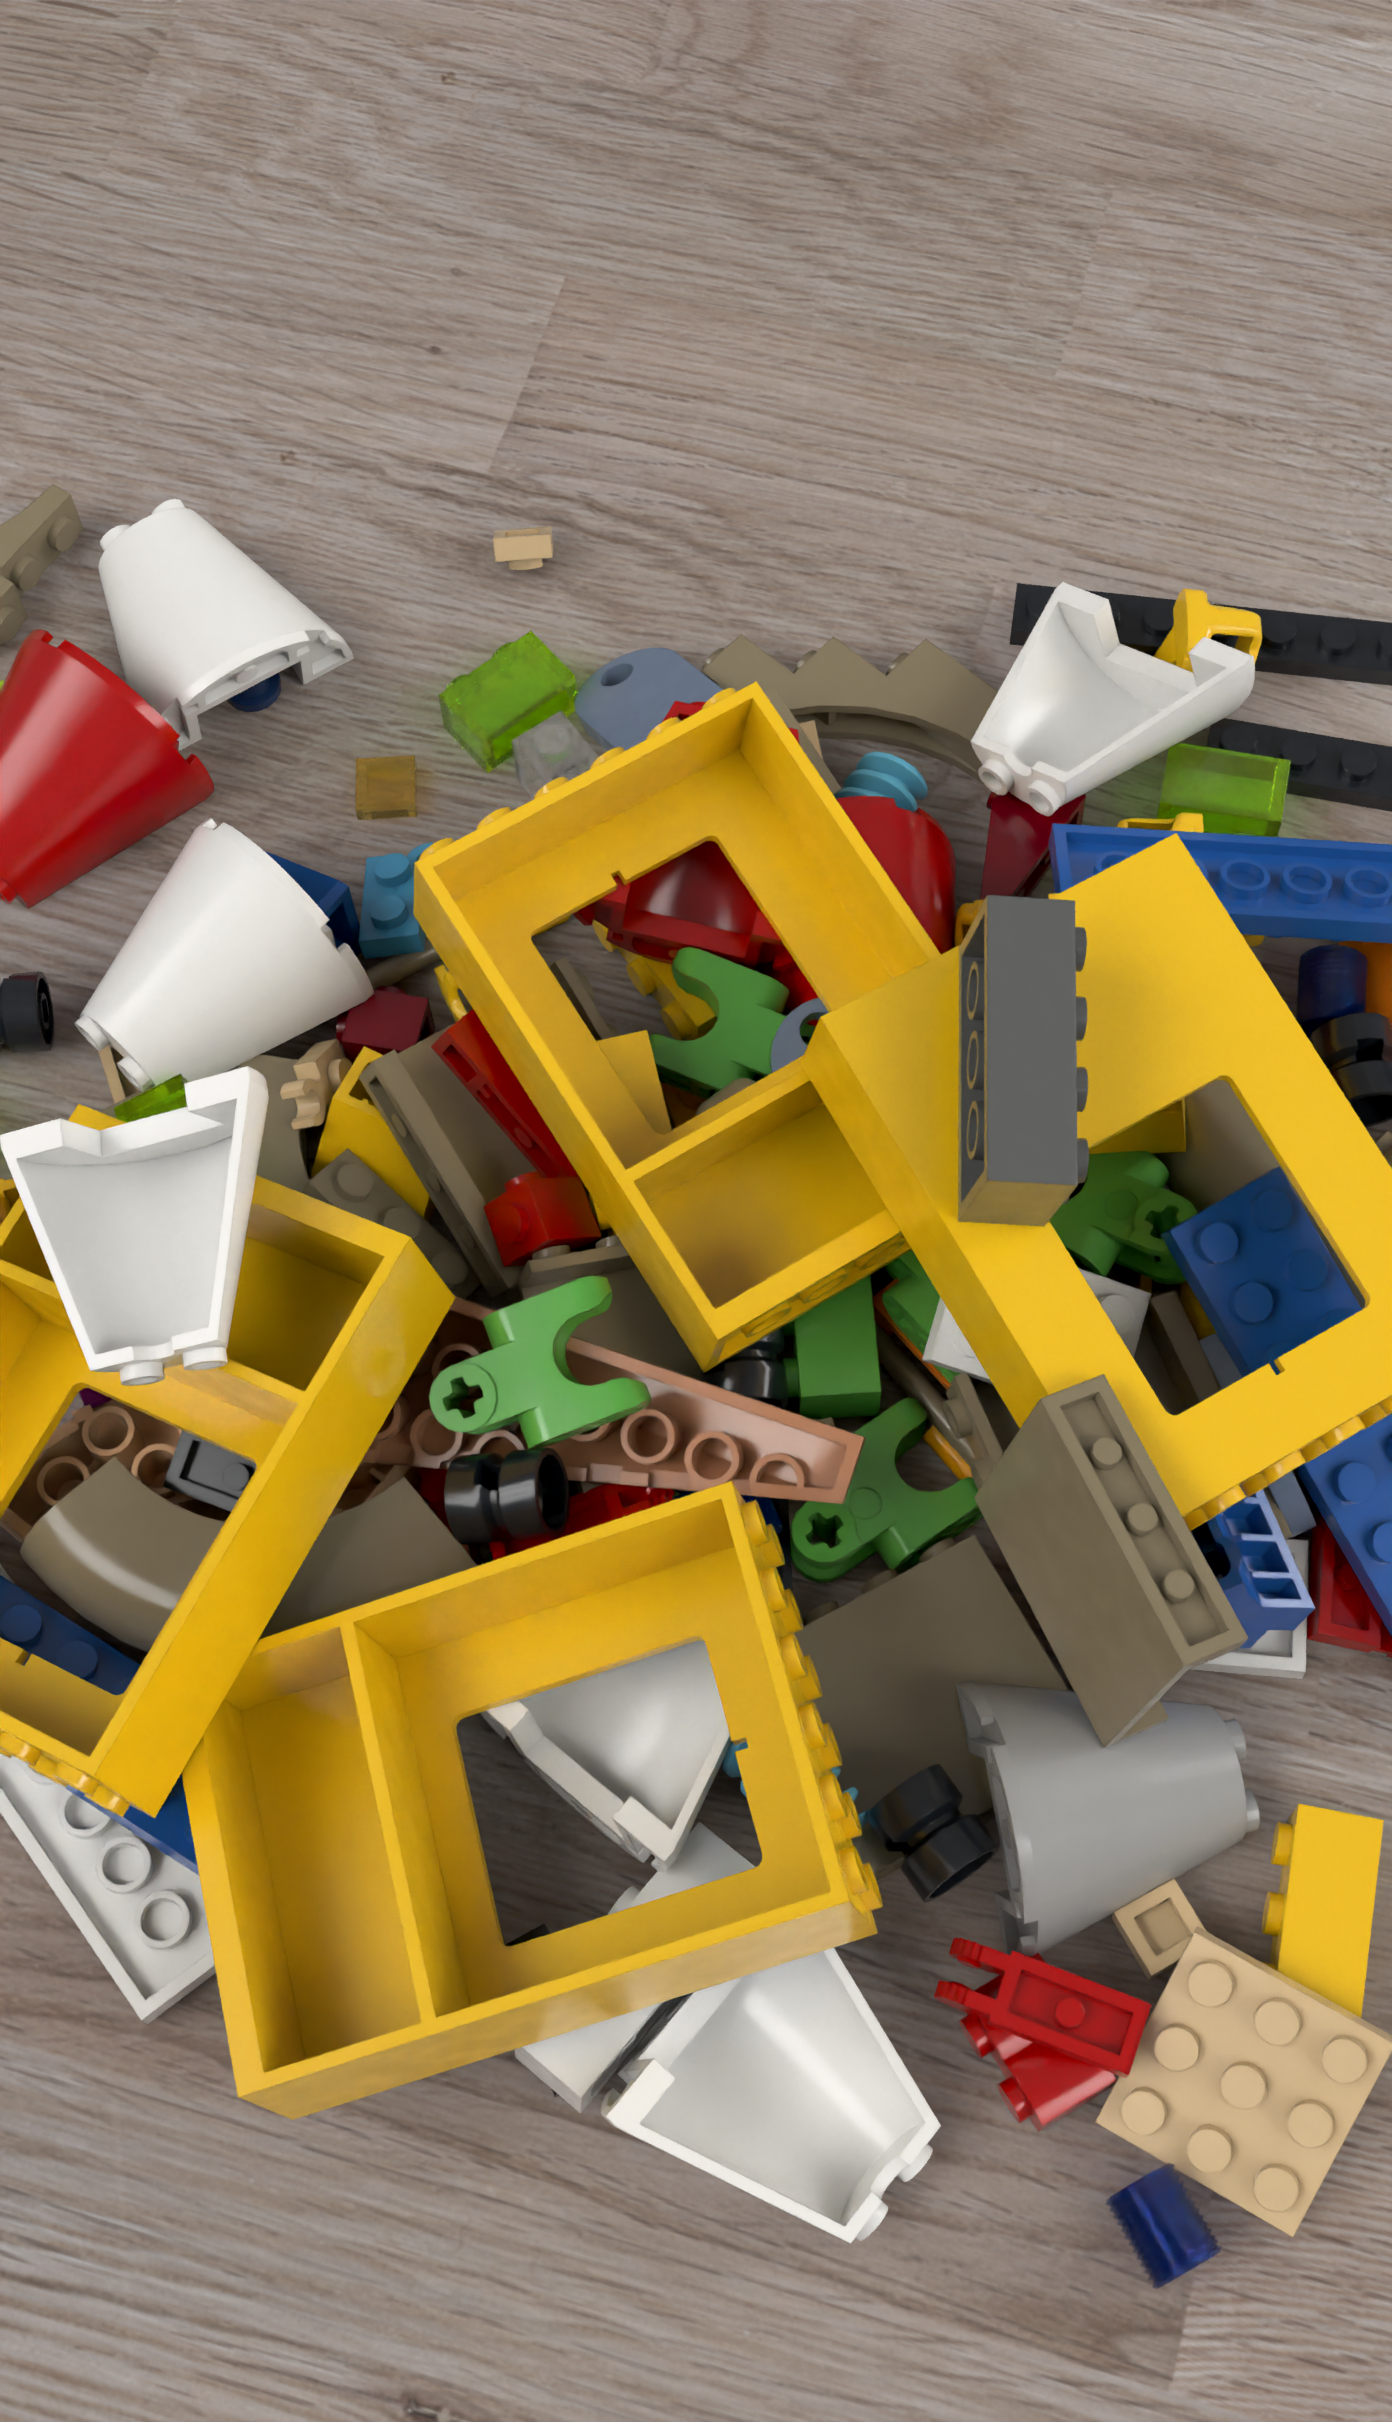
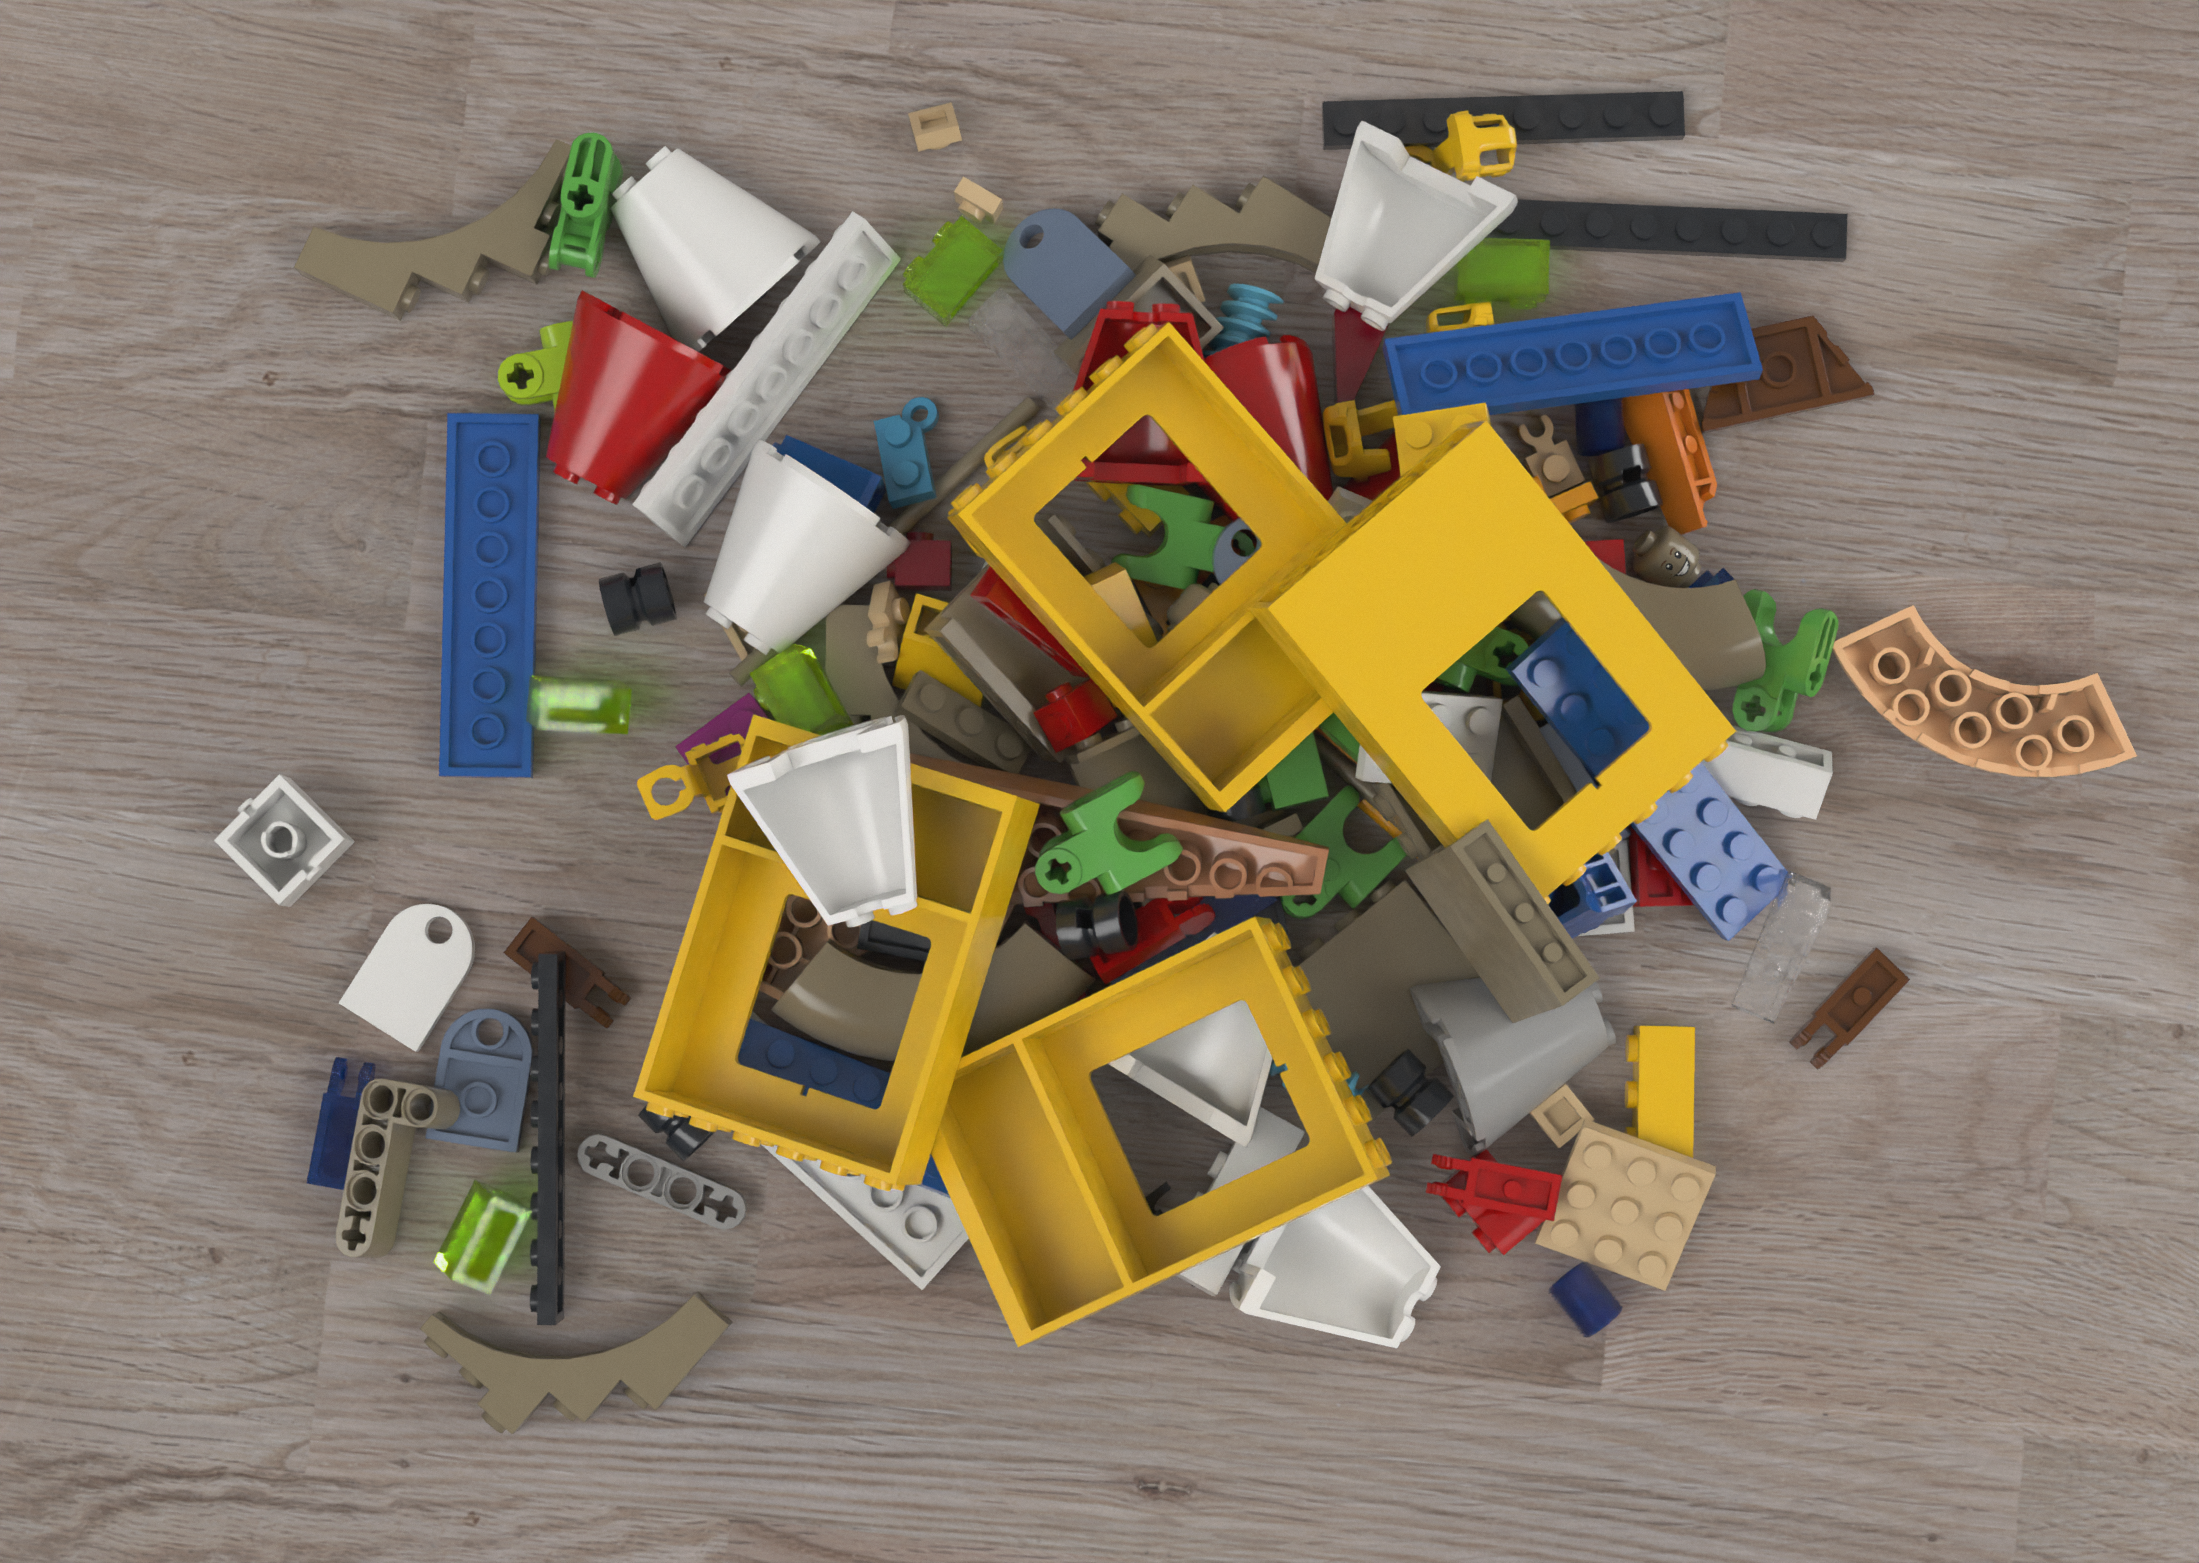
camera: 15 degrees left, 20 degrees up
(61, 568) = (588, 186): none -> bright green piece
(239, 773) = (767, 379): none -> white plate
(386, 787) = (873, 355): clear yellow tile -> none
(559, 628) = (977, 202): none -> tan plate
(1020, 1061) = (1407, 630): dark grey brick -> none

